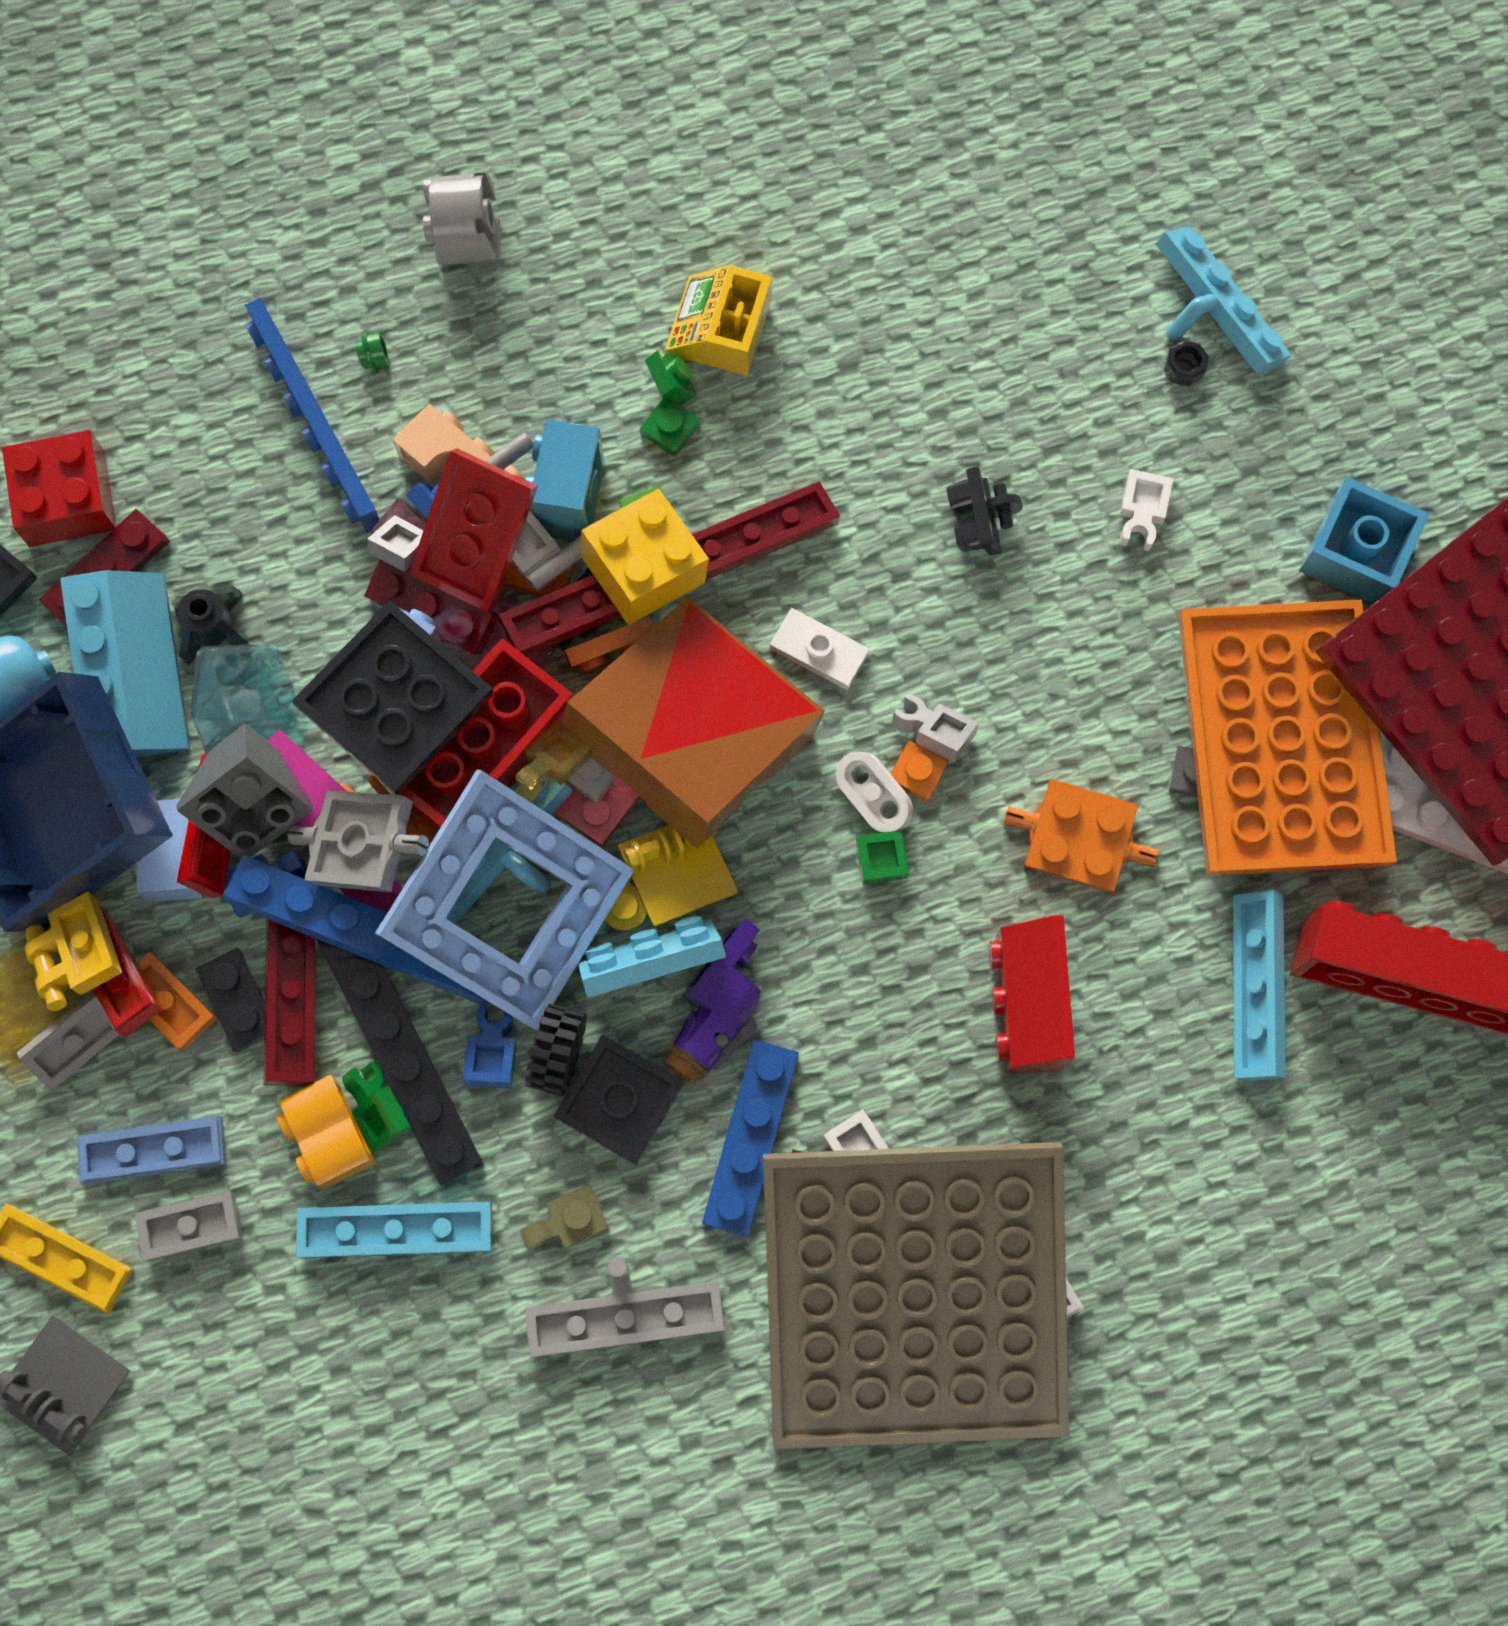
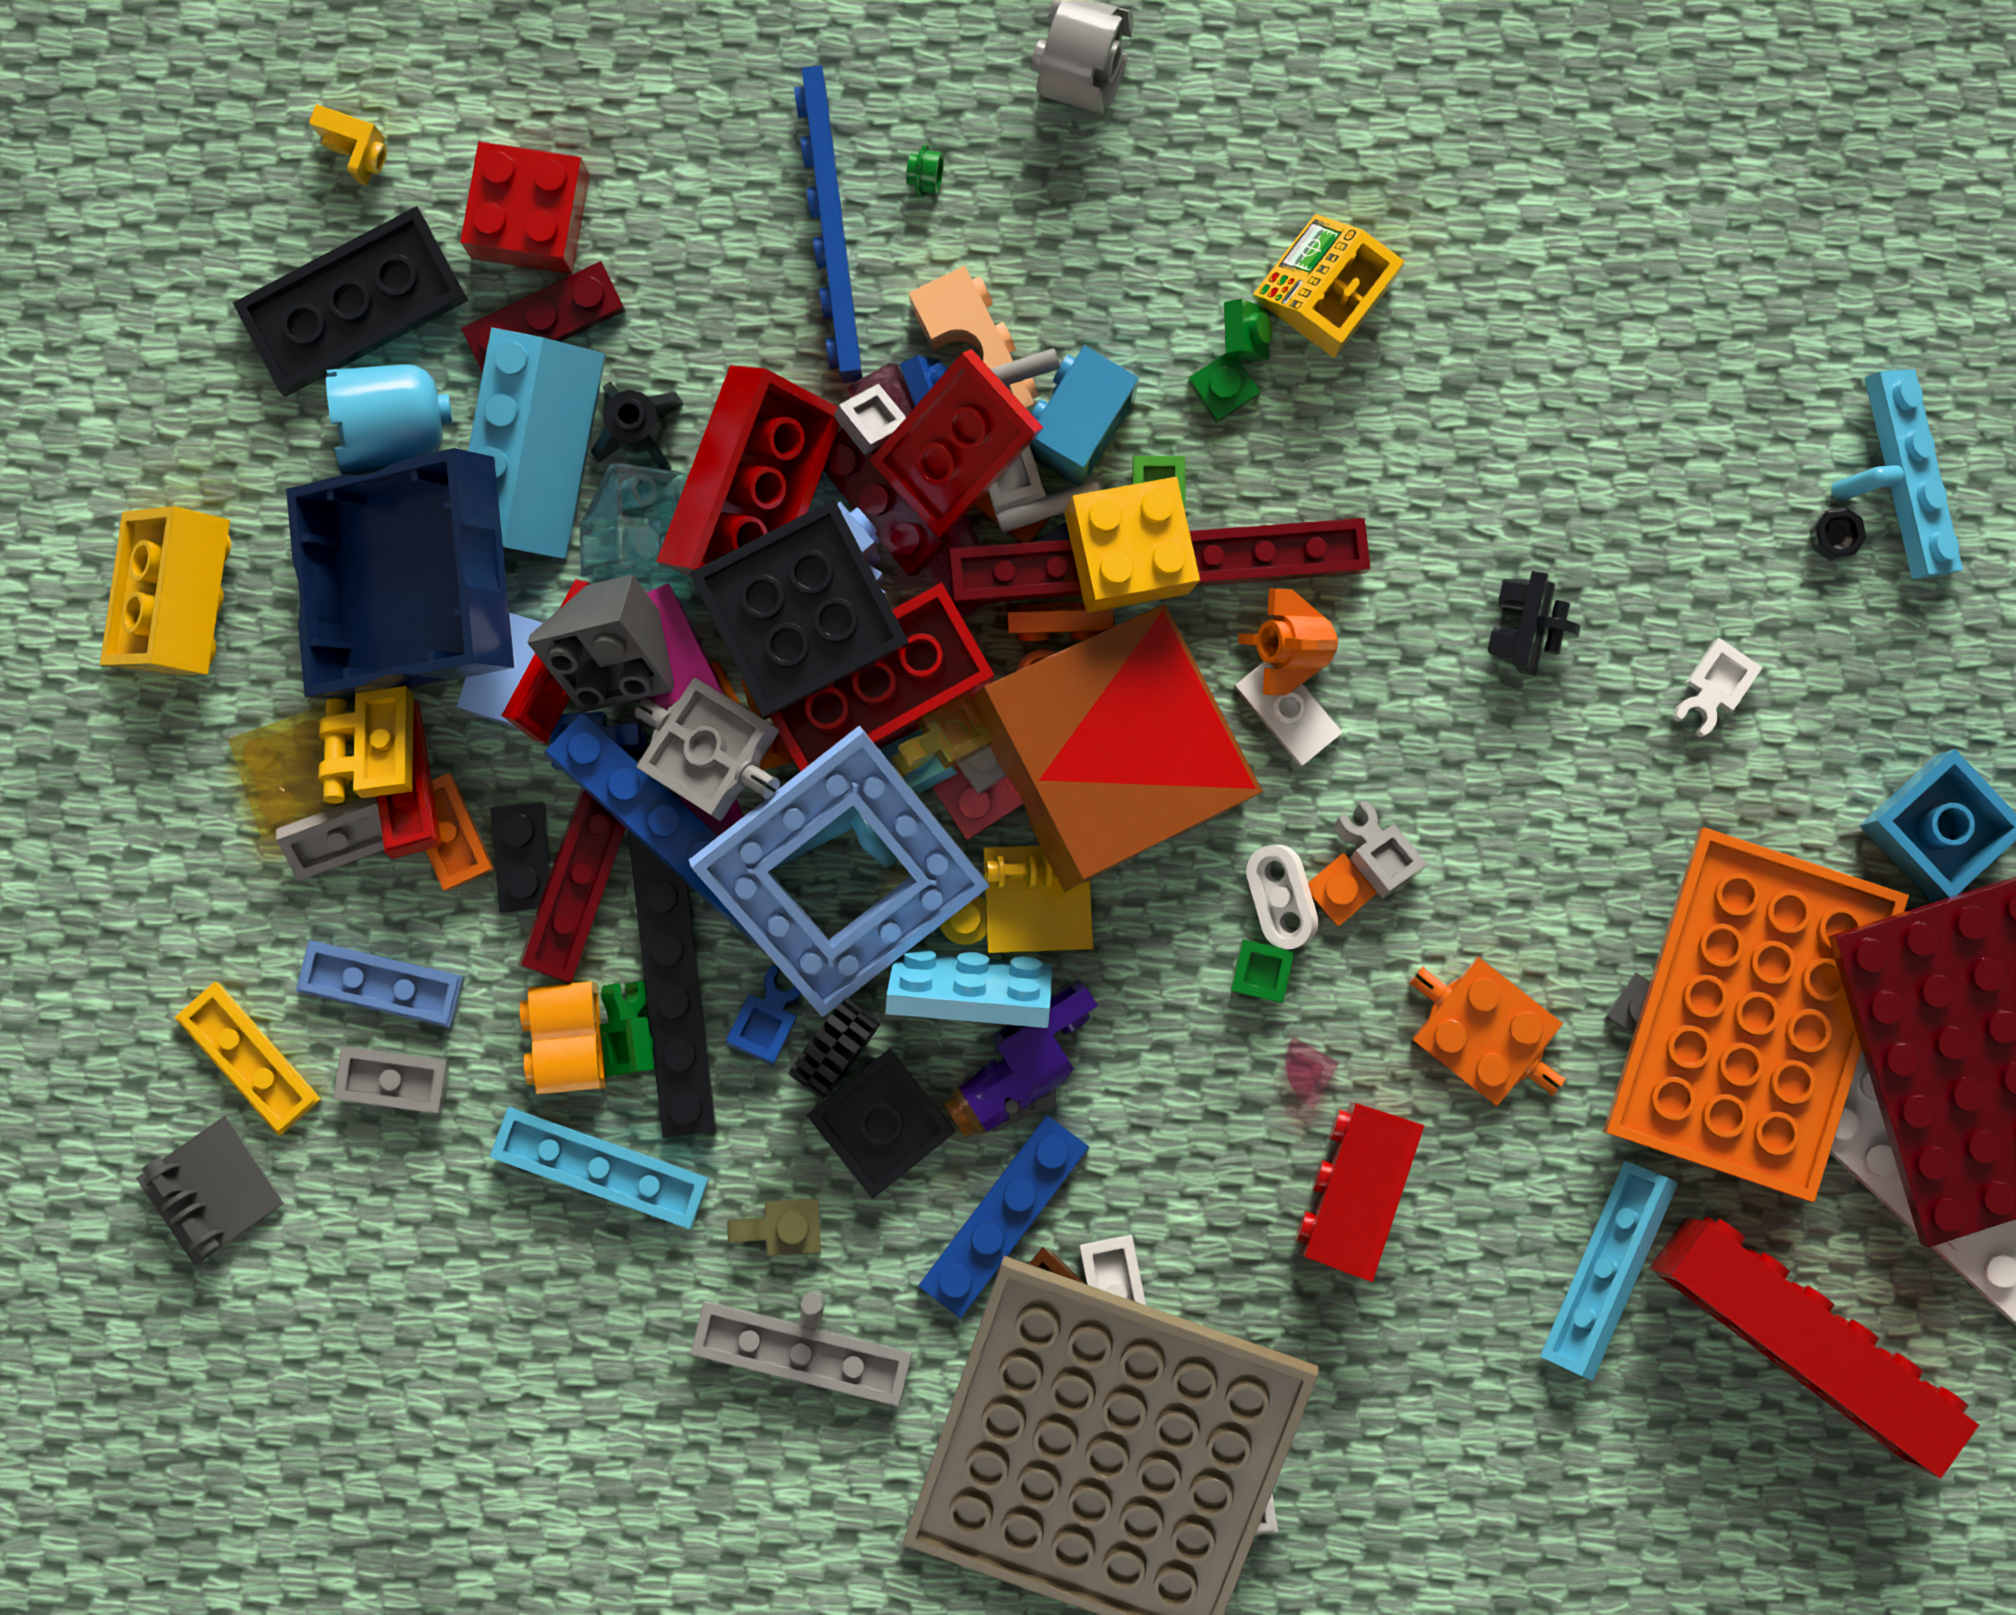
camera: 25 degrees right, 10 degrees up
(314, 606) = (750, 468): none -> red brick
(802, 591) = (1297, 645): none -> orange brick
(951, 923) = (1308, 1071): none -> clear pink tile

